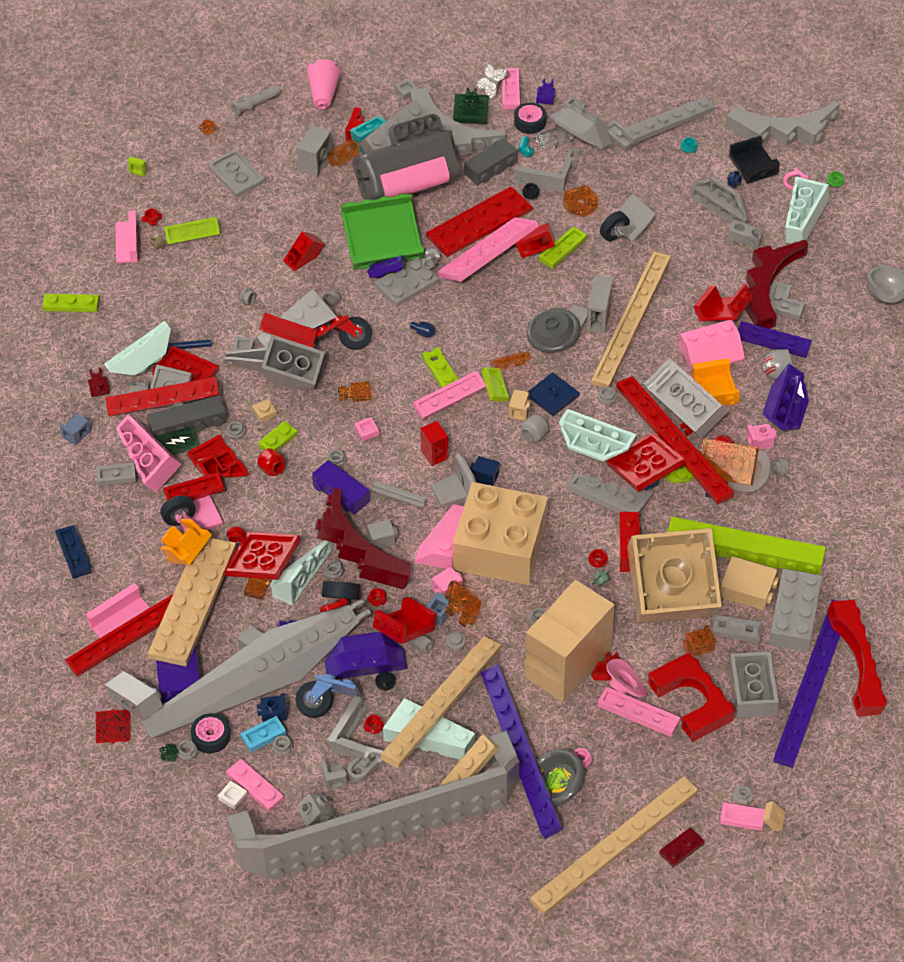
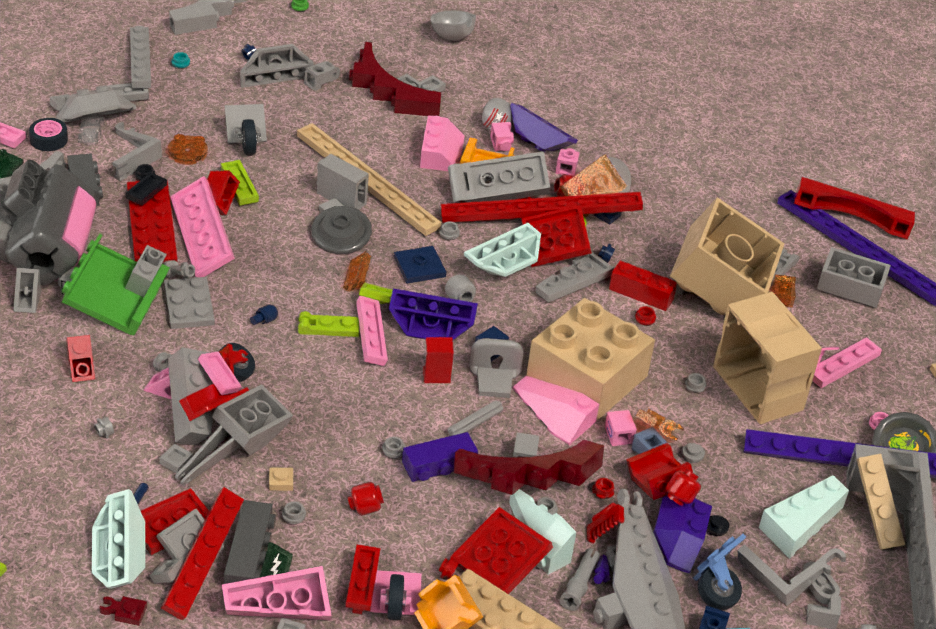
camera: 70 degrees left, 10 degrees down
(216, 459) = (328, 543): red slope -> none
(256, 588) = (536, 581): clear orange plate -> none
(264, 614) = (577, 585): none -> light grey pin
(278, 437) = (329, 483): lime plate -> none
(311, 322) = (219, 373): none -> bright pink tile
(340, 590) = (589, 507): black wheel -> none
(347, 192) = (27, 290): none -> light grey slope
(357, 391) = (312, 394): clear orange plate -> none
(366, 429) = (371, 408): bright pink plate -> none
(373, 719) = (770, 555): red plate -> none
(378, 632) = (683, 487): none -> red head
(380, 269) = (162, 303): dark purple plate -> none
(408, 238) = (145, 271): none -> light grey slope
(440, 702) = (789, 484): tan plate -> none
(487, 419) = (431, 315): none -> dark purple wedge
(505, 199) = (146, 188): none -> black tile
(519, 405) = (422, 284): tan brick -> none
(523, 147) = (72, 150): teal arm -> none
(546, 93) = (26, 113): dark purple plate -> none
(601, 578) = (673, 322): sand green plate -> none
(656, 504) = (606, 252): none -> dark blue plate
(687, 672) = (866, 312): red arch -> none
(714, 308) = (406, 115): red panel -> none
(753, 160) = (235, 35): black panel -> none
(757, 380) = (501, 136): none -> bright pink brick
(758, 547) = (670, 235): lime brick -> none
(774, 339) = (463, 107): dark purple plate -> none
(795, 610) = (783, 220): light grey brick -> none
(796, 172) = (282, 18): bright pink piece -> none
(806, 206) = (326, 30): light aqua wedge -> none

